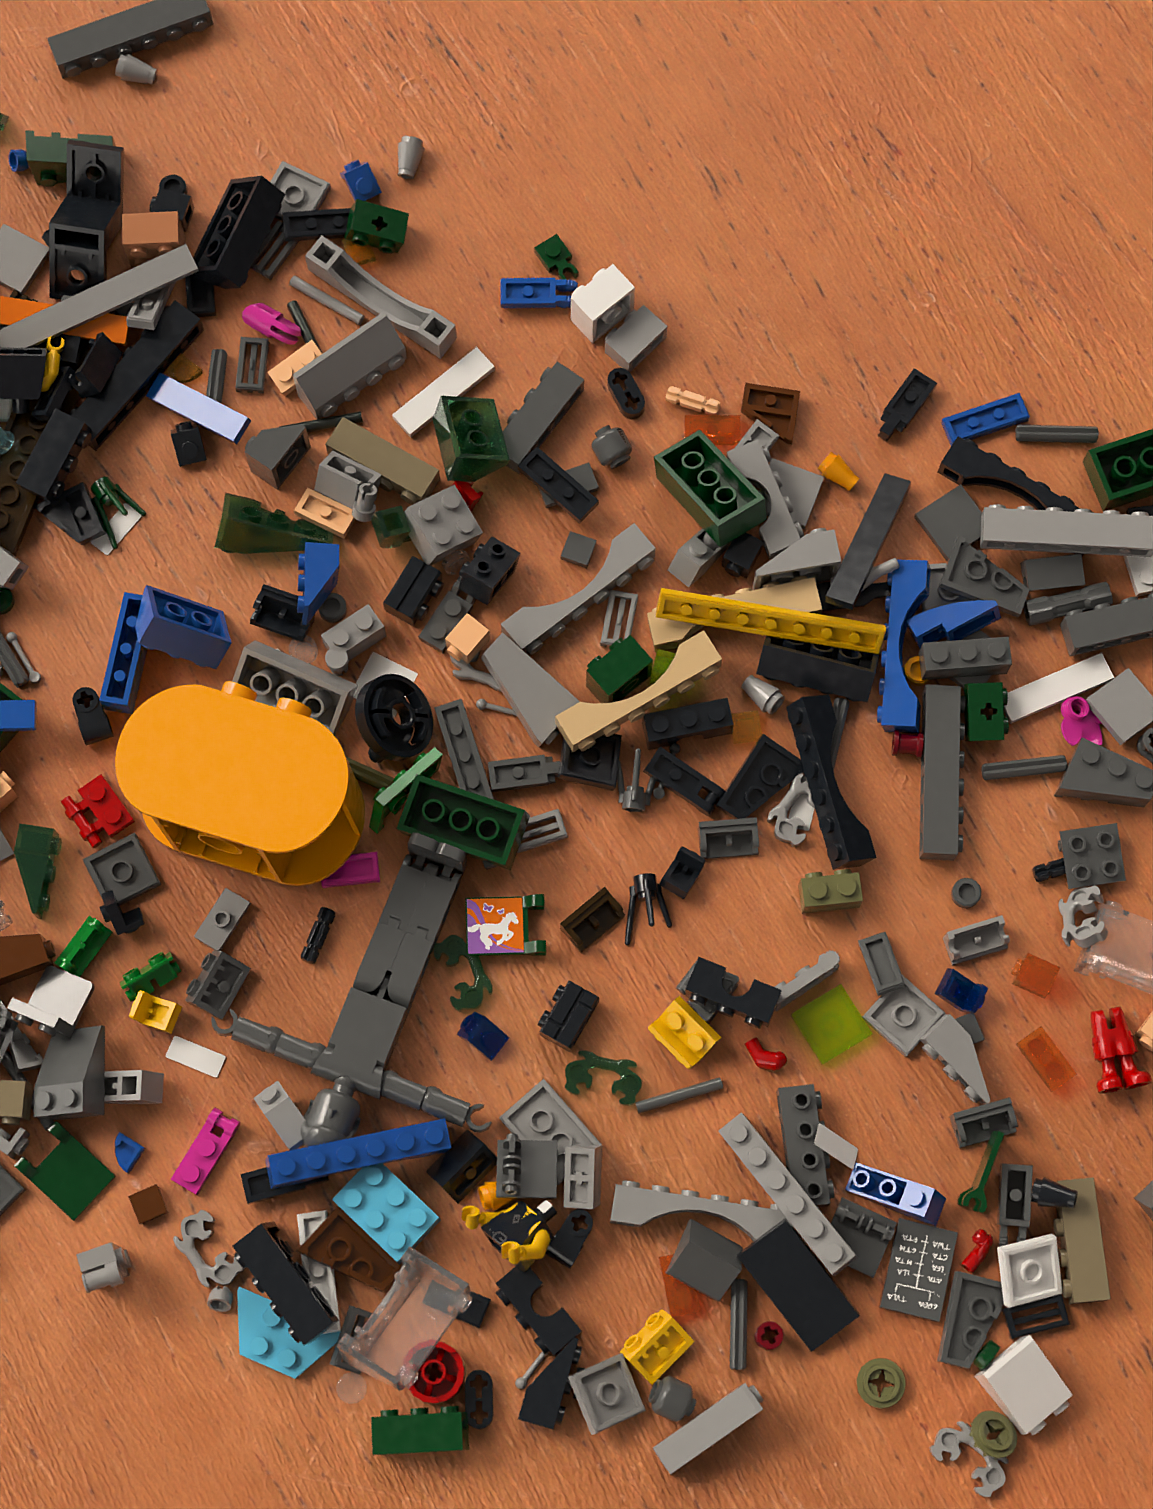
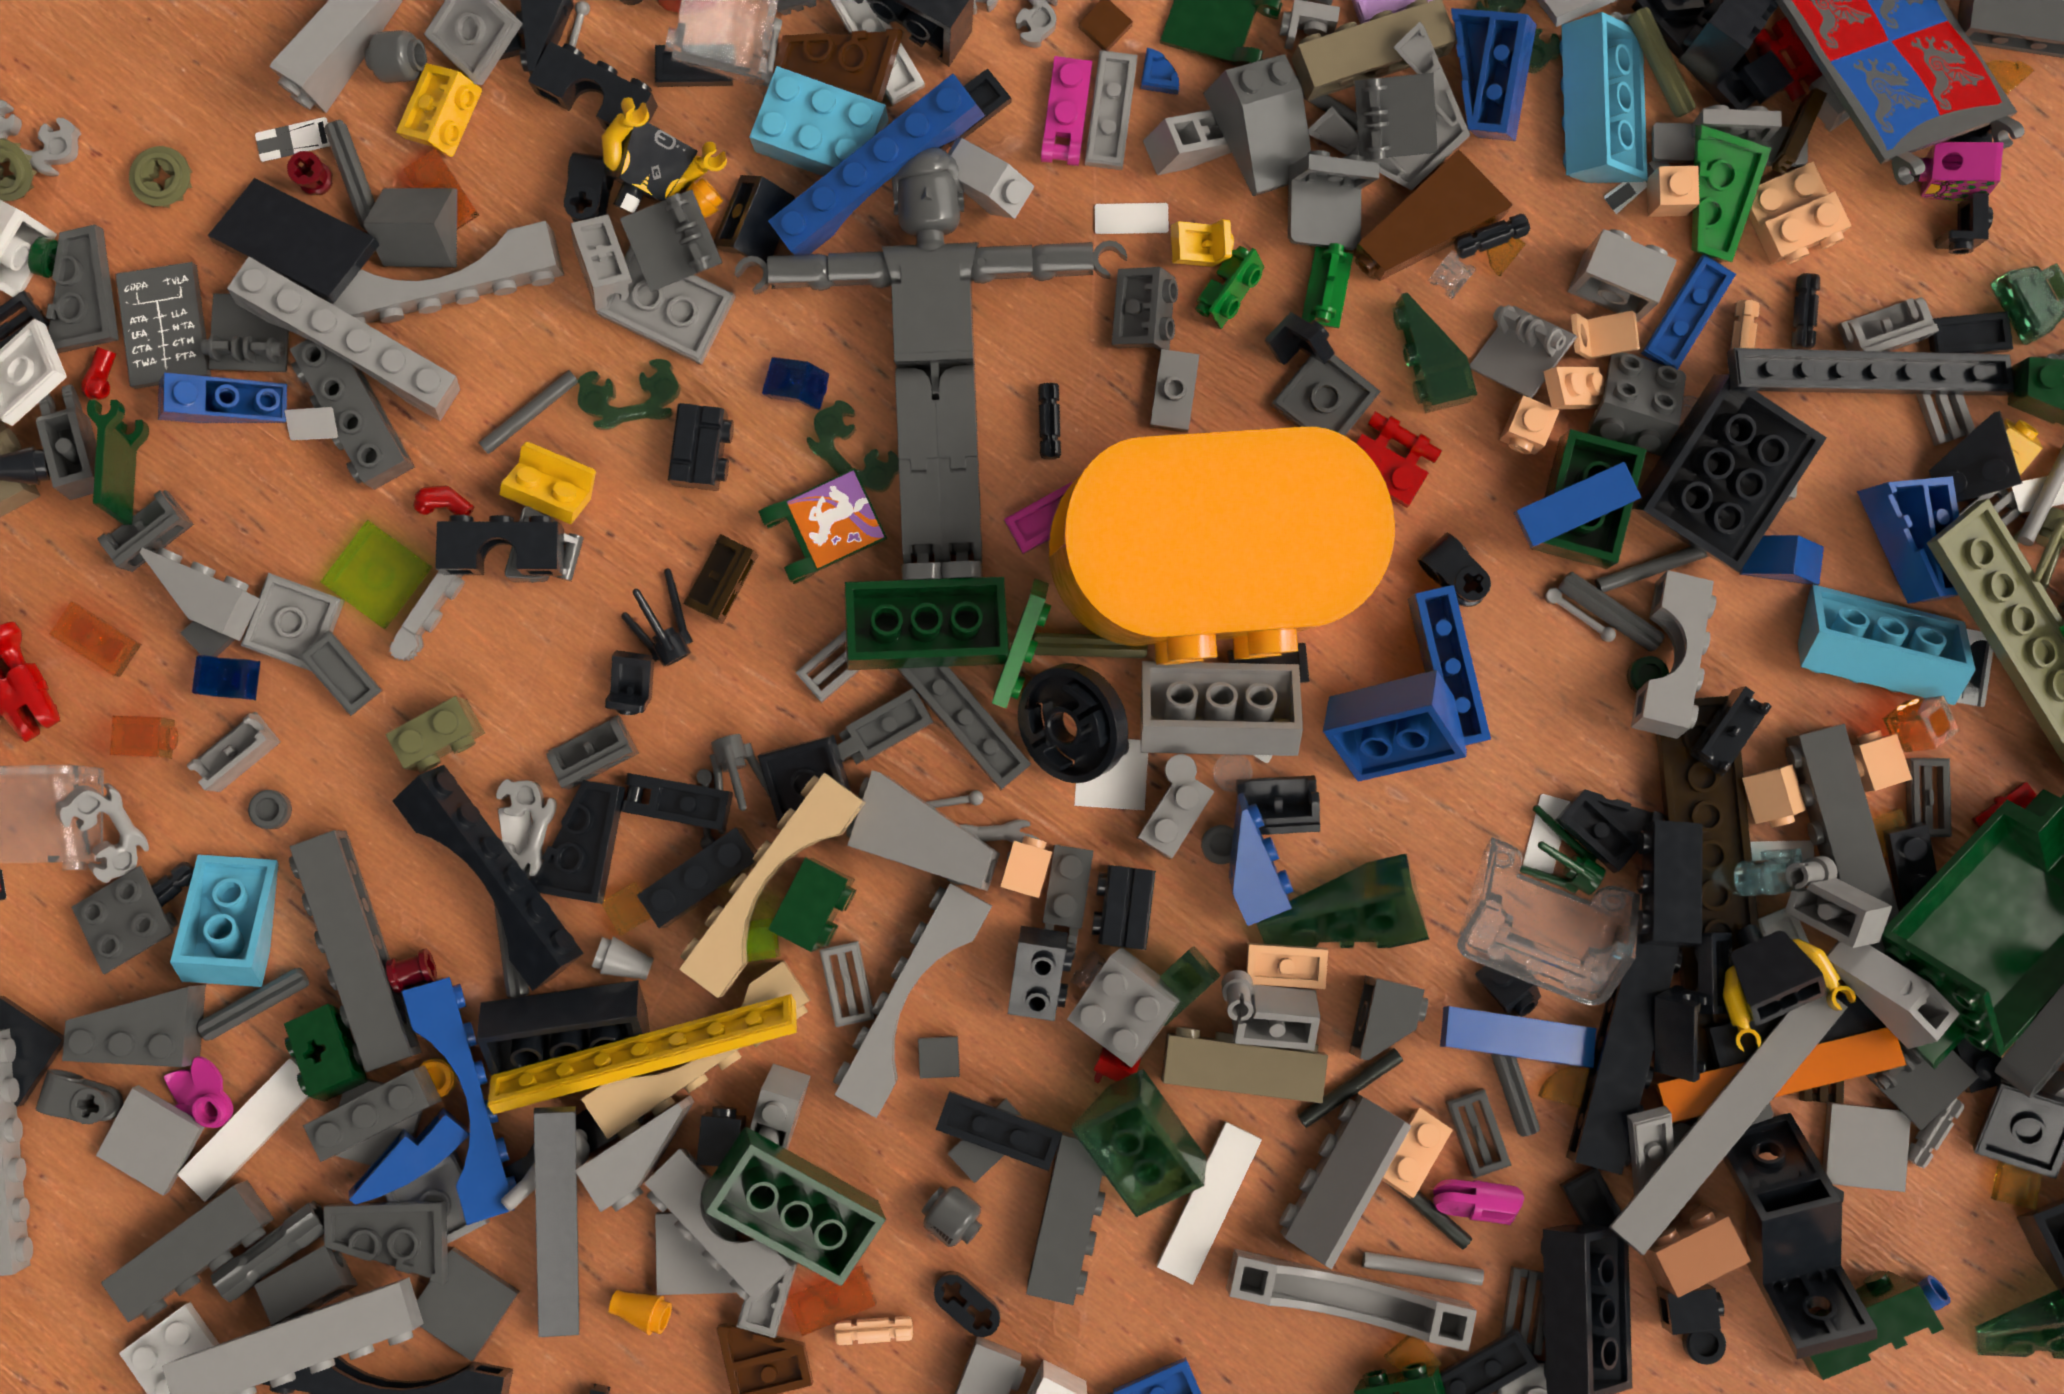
camera: 160 degrees right, 10 degrees up
(145, 463) = (1548, 933): none -> clear windscreen
(173, 1139) = (1111, 110): none -> light grey tile
(773, 1374) = (292, 139): none -> sticker
(1020, 828) = (227, 921): none -> medium azure slope

